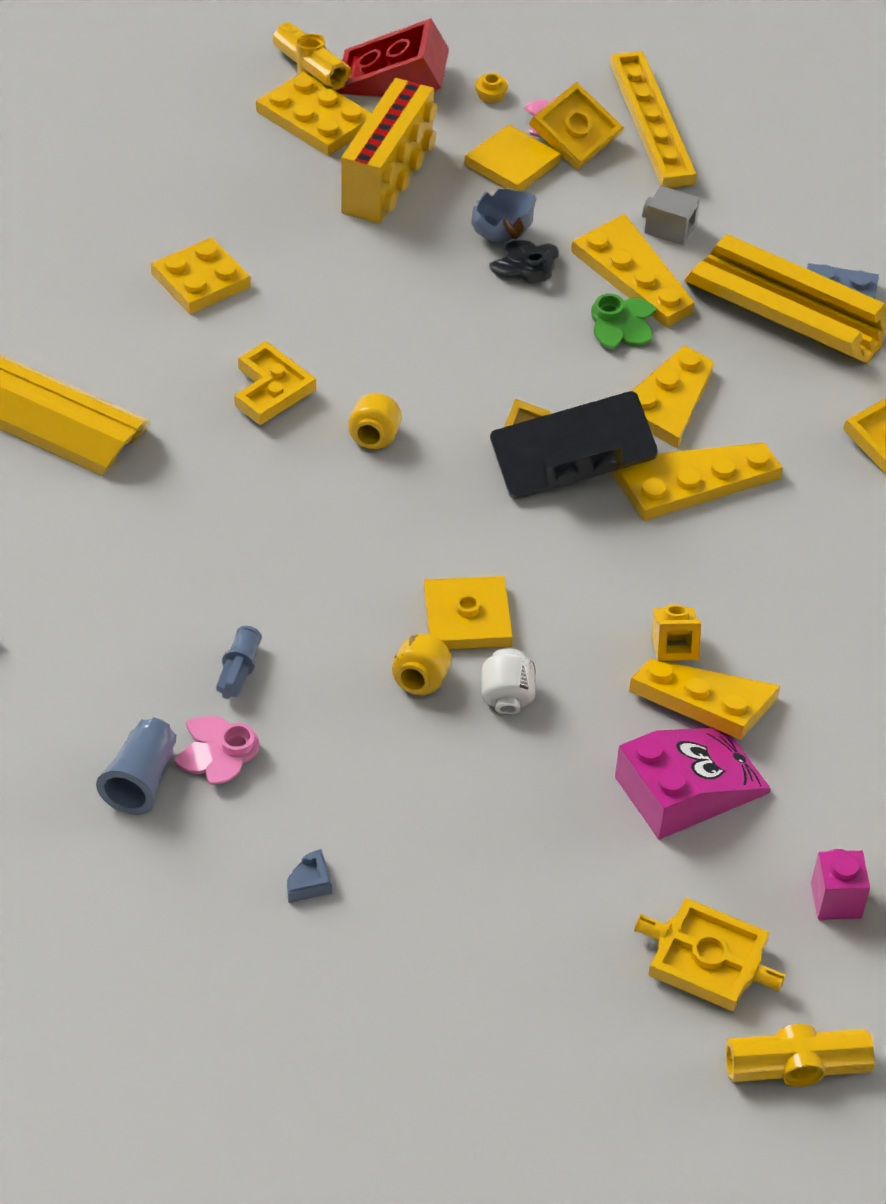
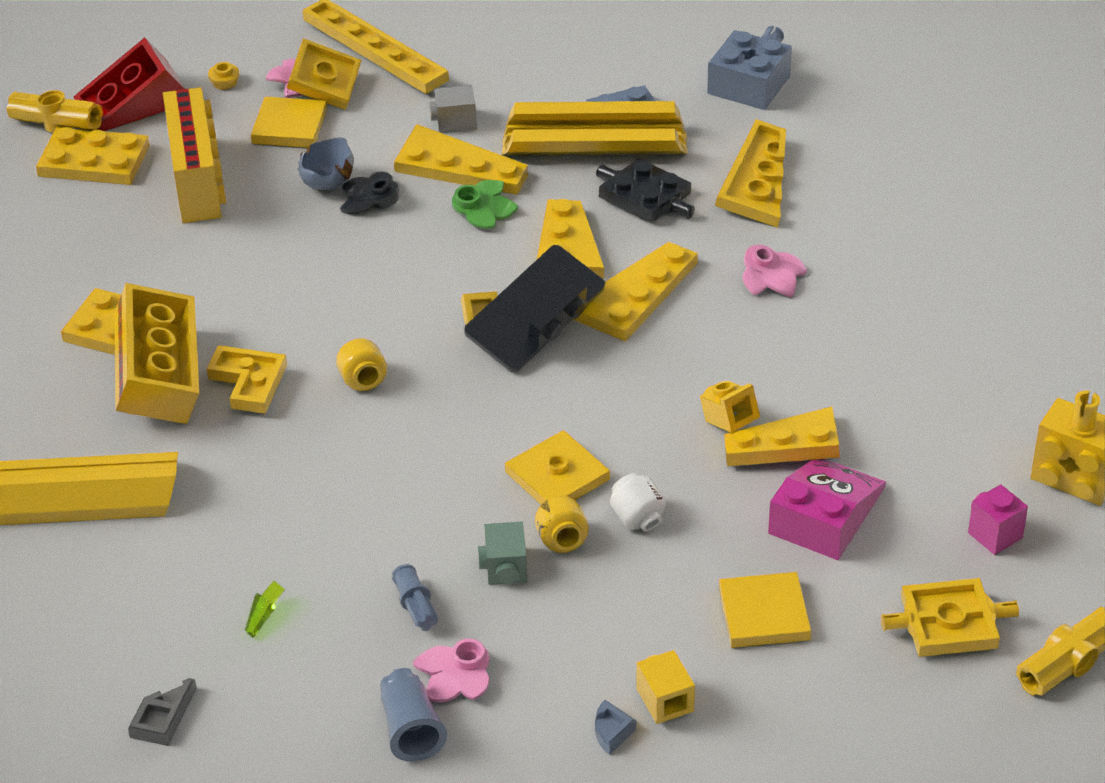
camera: 30 degrees left, 5 degrees down
(105, 601) = (262, 608): none -> clear neon green bar
(199, 321) = (156, 354): none -> yellow brick
(348, 664) = (504, 553): none -> sand green brick
(377, 867) = (665, 686): none -> yellow brick
(542, 847) = (764, 609): none -> yellow tile
(788, 381) = (645, 190): none -> black plate
(842, 524) = (771, 270): none -> bright pink plate

